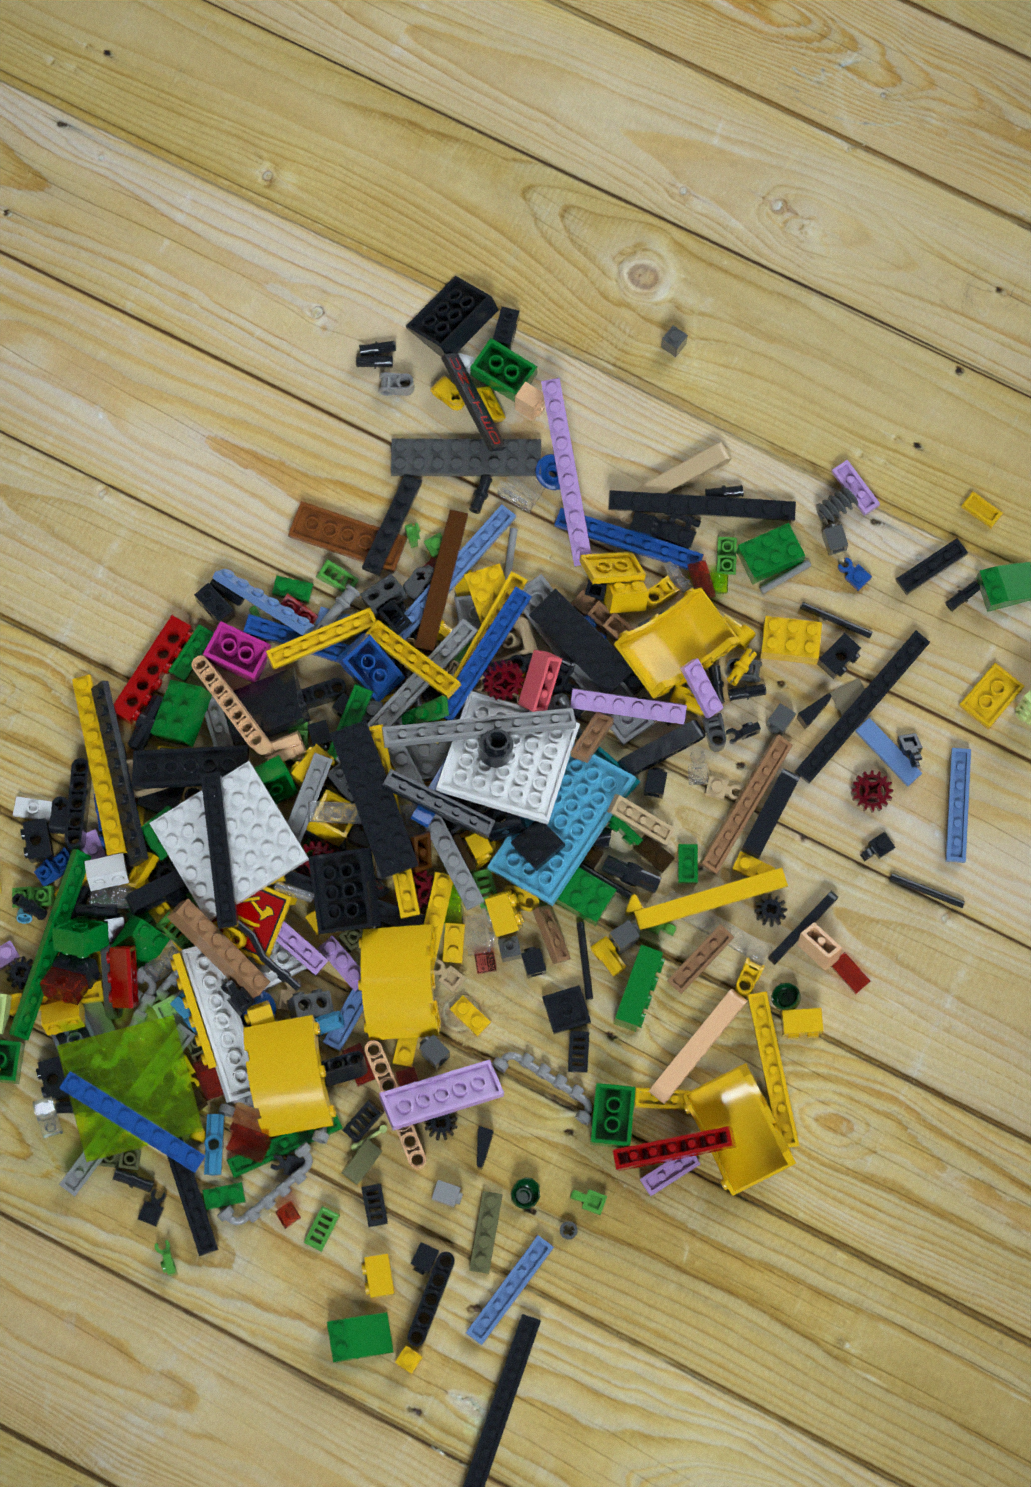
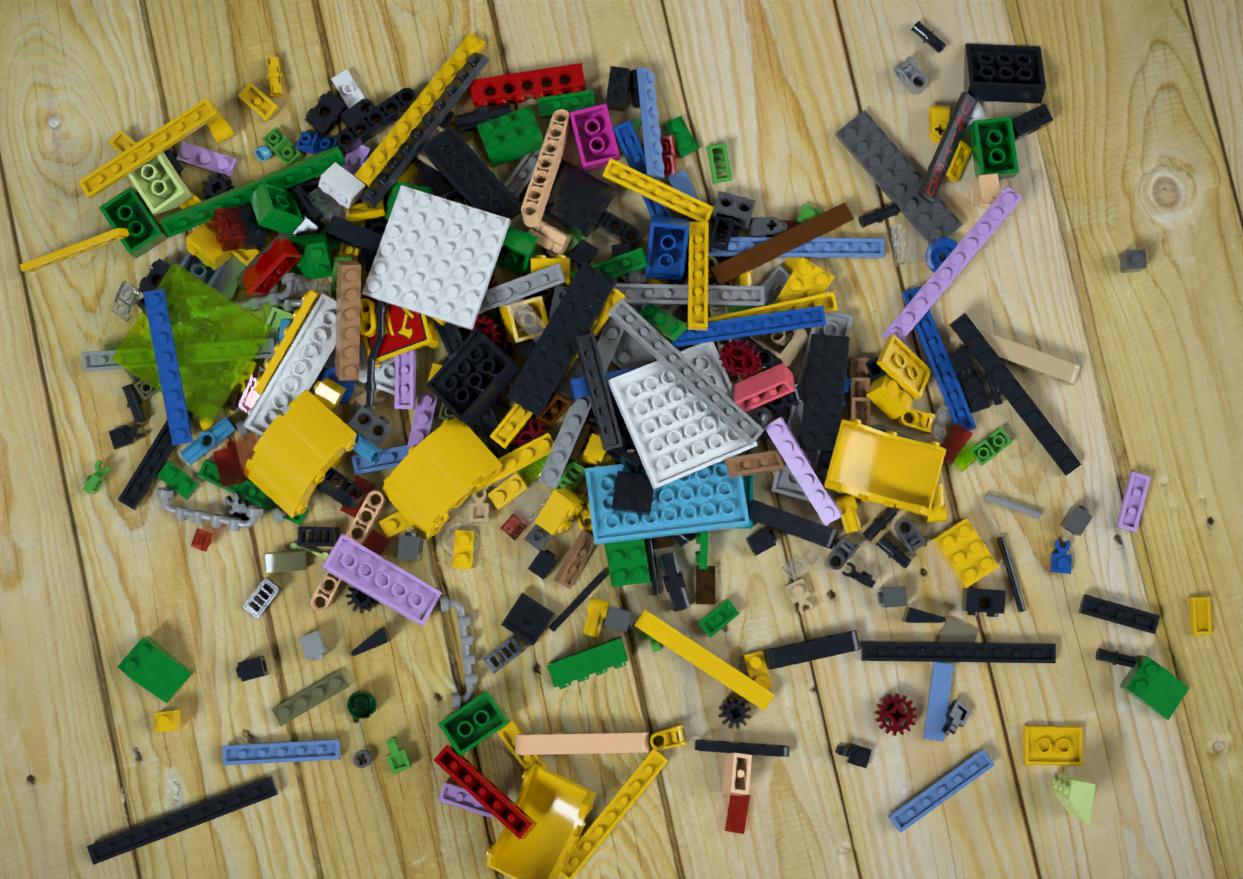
camera: 50 degrees right, 10 degrees up
(29, 906) = (269, 151): black pin -> none
(219, 850) = (420, 256): black plate -> none
(239, 998) = (326, 367): black plate -> none
(293, 891) = (439, 338): clear piece -> none
(329, 1213) = (227, 569): bright green slope -> none
(340, 534) = (757, 143): dark orange plate -> none
(342, 603) = (700, 183): light grey pin -> none
(374, 361) = (916, 44): black axle -> none
(378, 1275) = (211, 645): yellow brick -> none
(392, 525) = (795, 168): black plate -> none
(413, 534) = (801, 190): bright green plate -> none
(431, 1288) = (217, 701): black beam -> none
(493, 756) = (686, 391): black piece -> none
(510, 552) = (850, 278): light grey bar -> none
(633, 905) = (650, 604): yellow slope -> none
(640, 819) = (720, 555): tan plate -> none
(700, 959) = (651, 690): medium nougat plate -> none
(701, 688) = (865, 516): lavender plate -> none
(731, 491) = (1042, 402): black pin -> none
(741, 666) = (908, 533): yellow pin -> none
(745, 804) = (803, 624): medium nougat plate -> none
(770, 553) = (1021, 479): green brick -> none
(786, 996) = (676, 779): dark green hair -> none
(802, 1022) = (666, 807): yellow brick -> none
(835, 505) = (1105, 497): dark grey piece -> none
(927, 890) = (852, 820): black bar -> none

